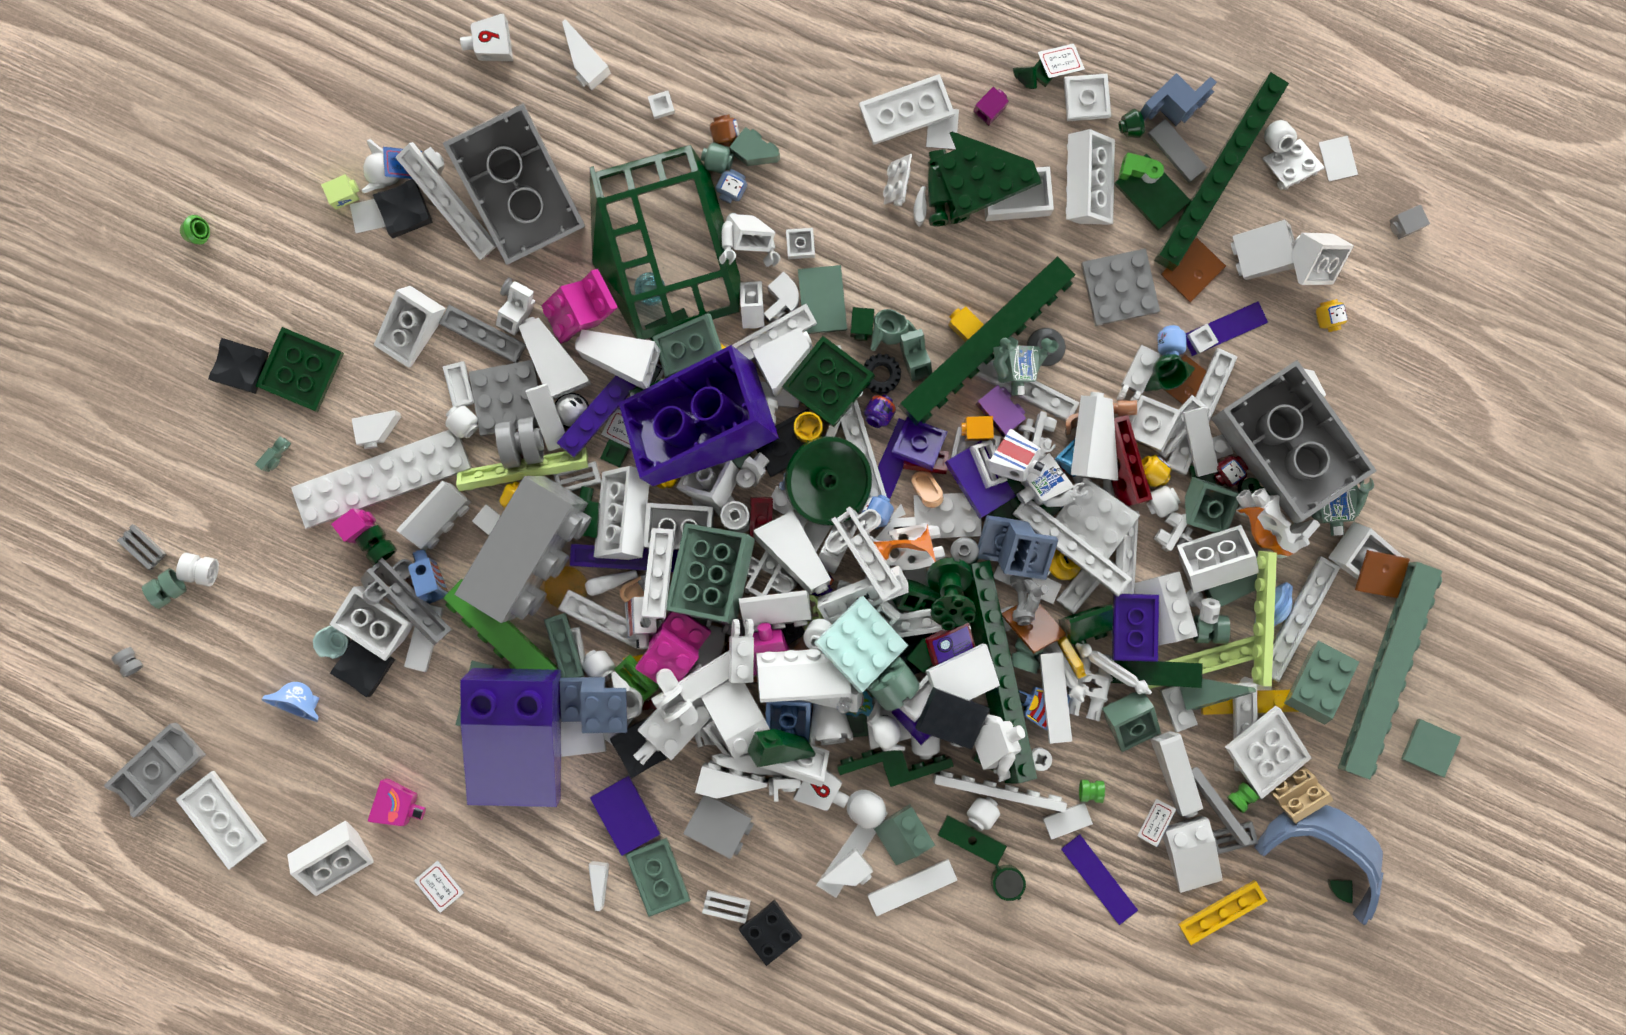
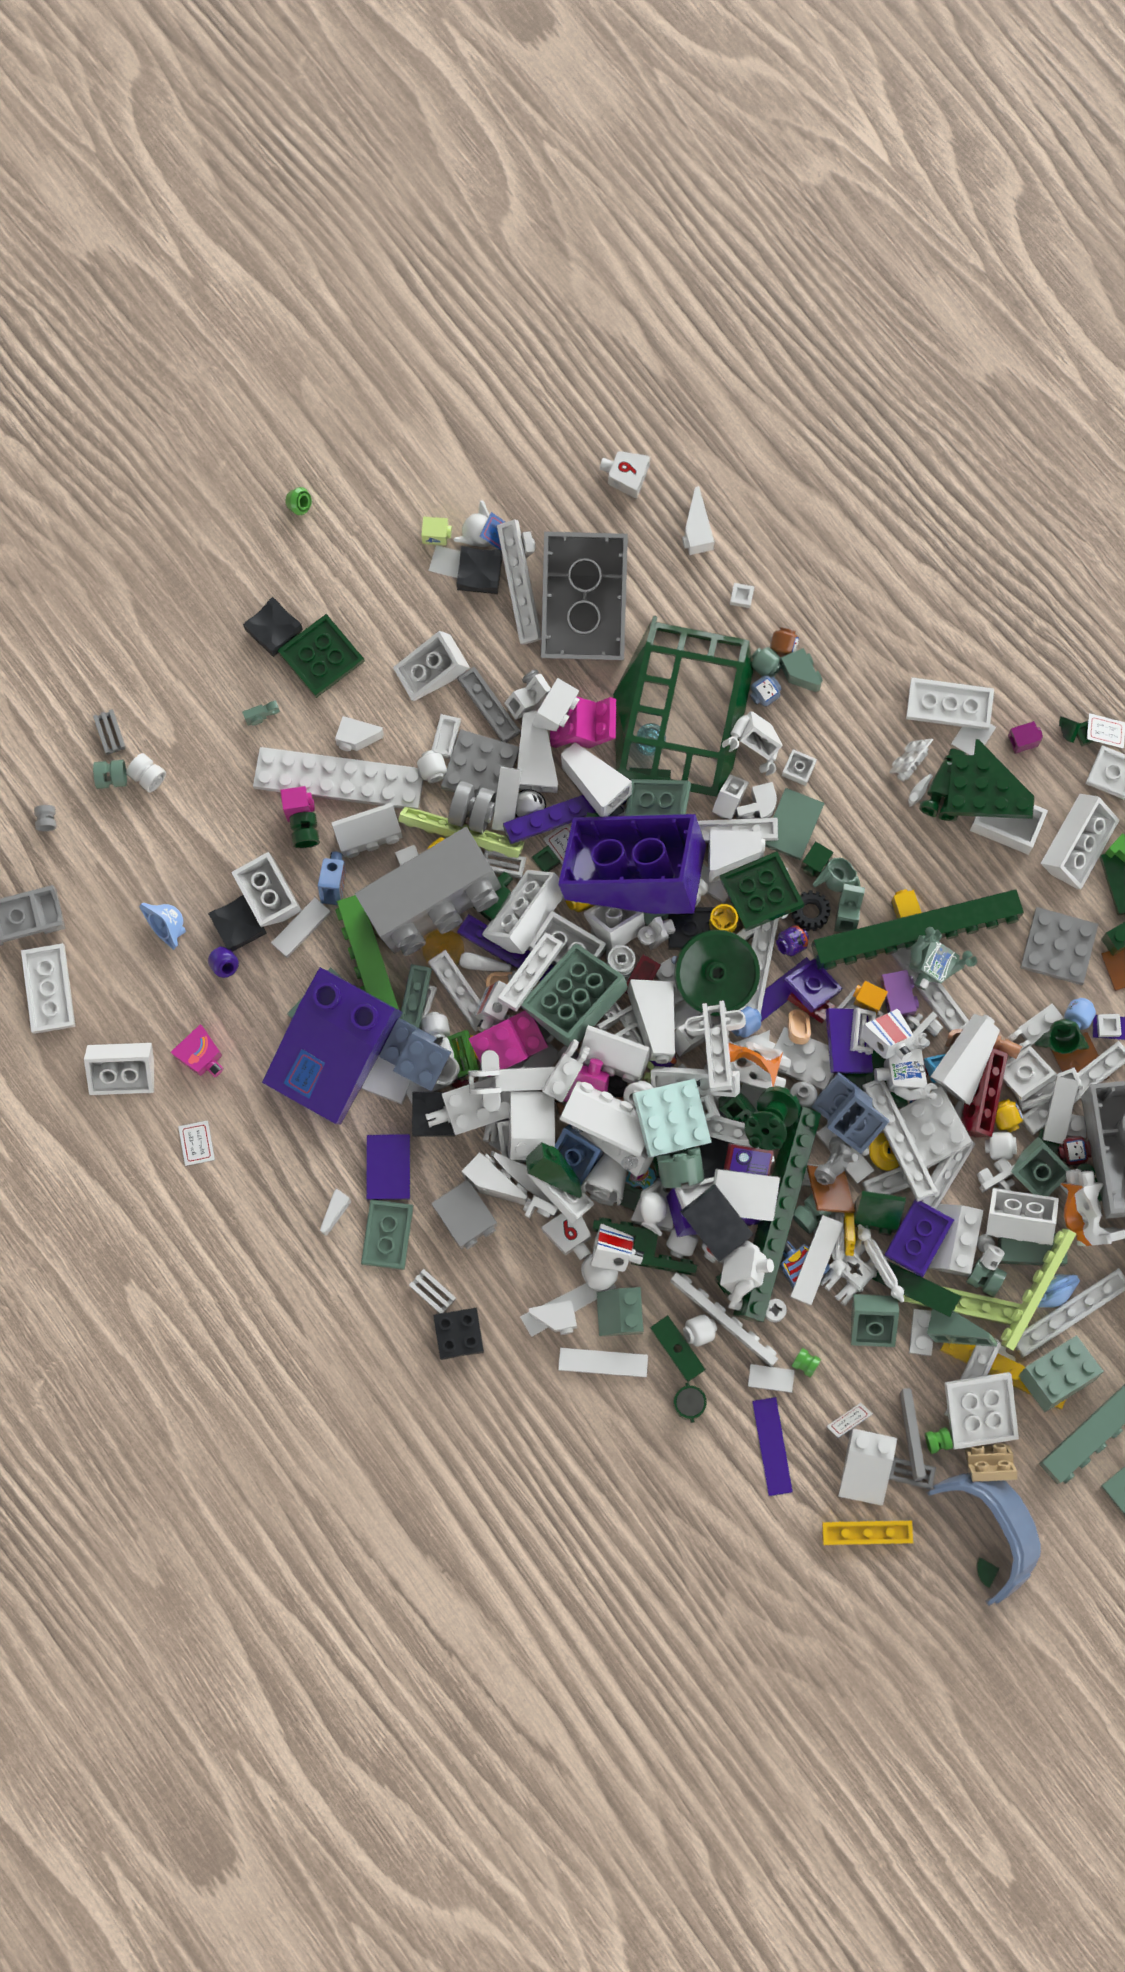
camera: 30 degrees right, 10 degrees down
(330, 642) = (222, 889): light aqua hair -> none
(369, 710) = (223, 962): none -> dark purple head
(403, 597) = (297, 863): light grey piece -> none
(502, 779) = (304, 1073): none -> blue sticker
(546, 307) = (556, 706): none -> white slope
(870, 787) = (614, 1250): none -> white torso
(920, 656) = (716, 1160): dark green brick -> none
(1040, 334) = (971, 974): dark grey piece -> none
(1177, 773) = (890, 1386): white slope -> none

